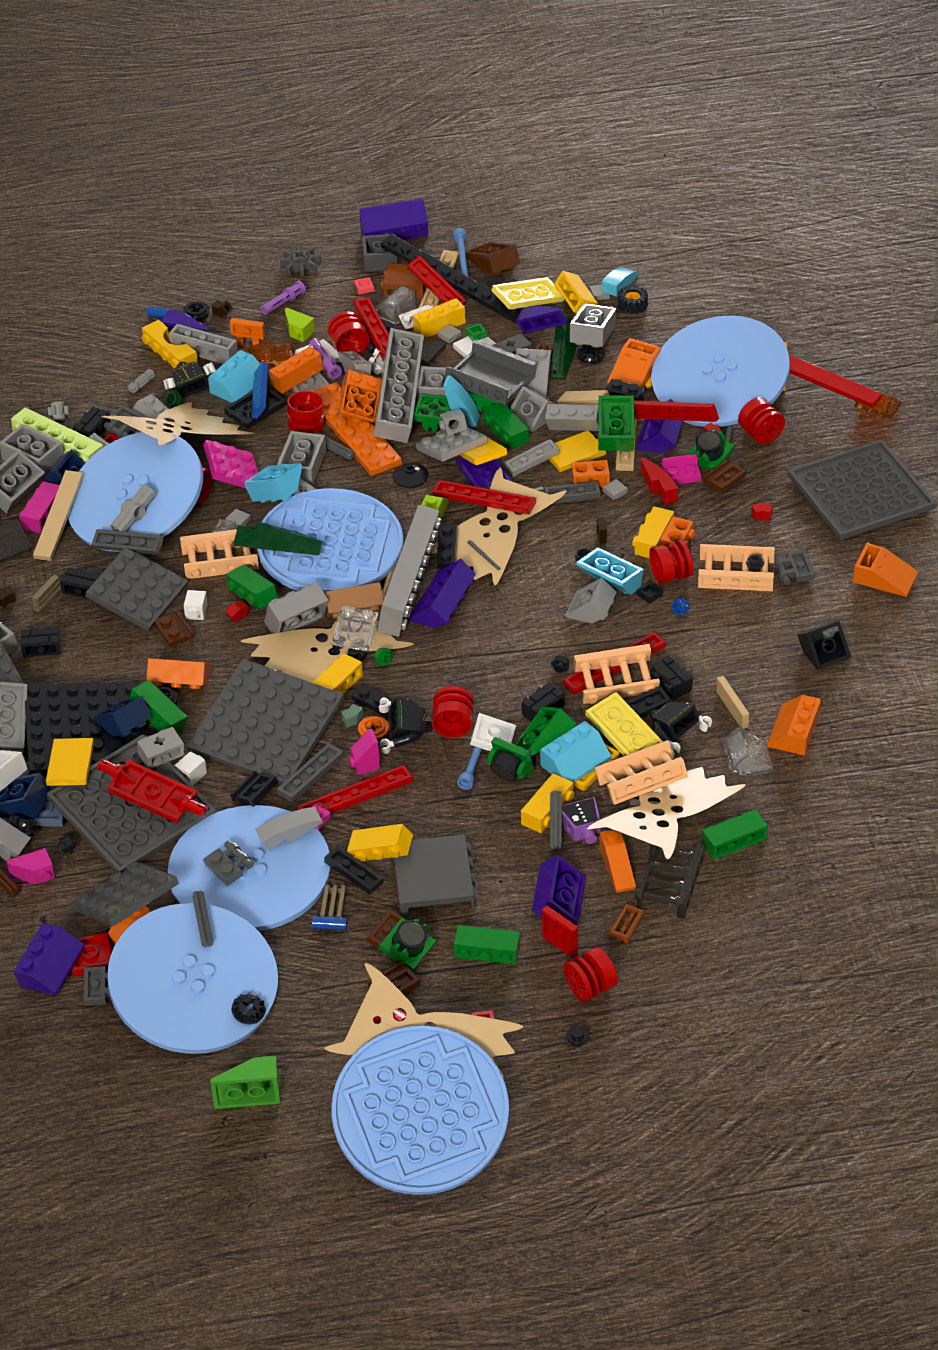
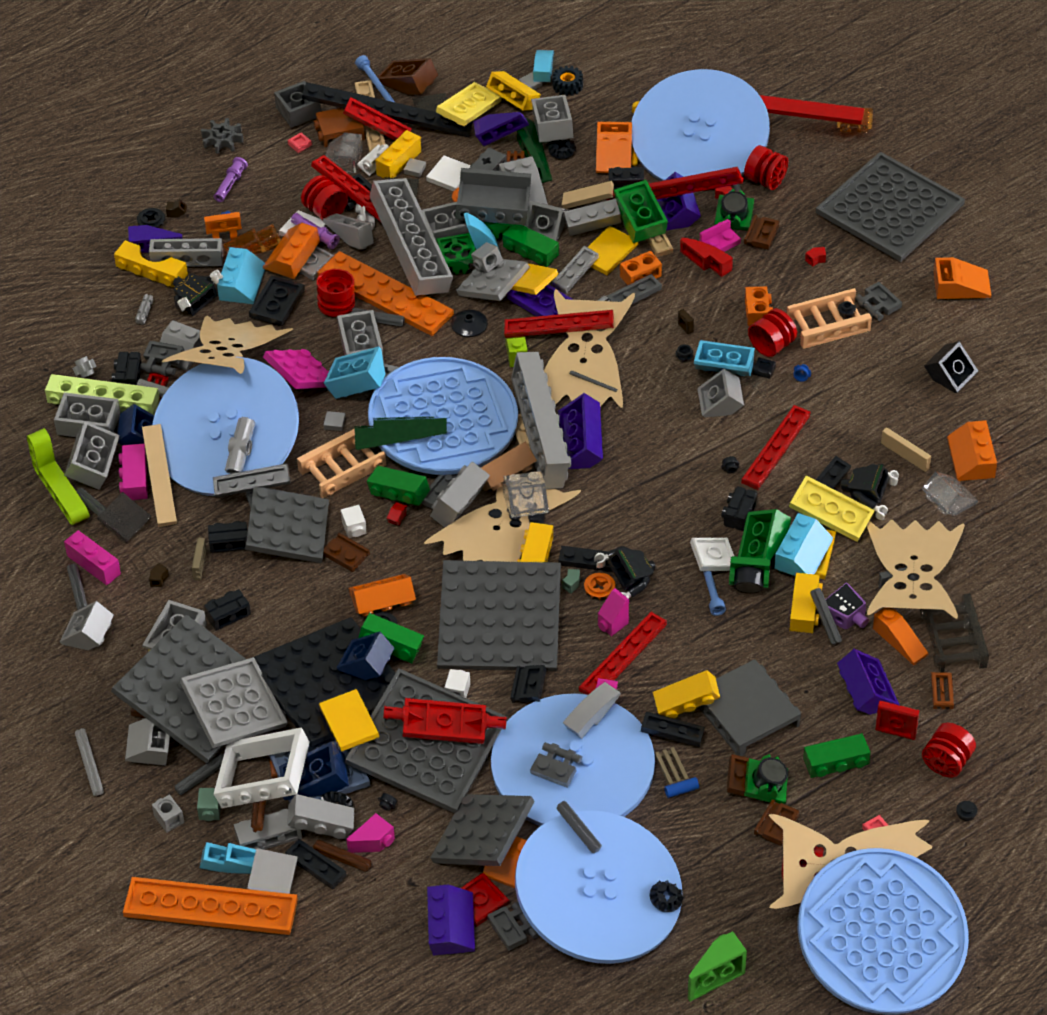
camera: 25 degrees left, 5 degrees up
(156, 312) = (113, 232): blue hinge -> none
(160, 748) = (427, 675): light grey brick -> none
(173, 399) = (186, 318): dark green plate -> none
(224, 525) = (329, 433): clear plate -> none
(259, 390) = (276, 283): blue tile -> none
(299, 325) = (263, 203): lime slope -> none
(310, 772) = (570, 649): dark grey plate -> none
(359, 395) = (376, 258): orange slope -> none
(383, 656) = (564, 512): green plate -> none
(402, 218) = (292, 66): dark purple slope -> none
(447, 545) = (559, 391): black plate -> none
(452, 712) = (668, 545): red wheel -> none
(476, 332) = (443, 158): green tile -> none
(610, 658) = (786, 440): light nougat fence -> none
(614, 489) = (670, 276): light grey tile -> none
(643, 781) = (883, 554): light nougat fence -> none
(651, 530) = (734, 308): yellow brick -> none
(672, 677) = (838, 443): black brick -> none
(734, 834) = (985, 573): green brick -> none

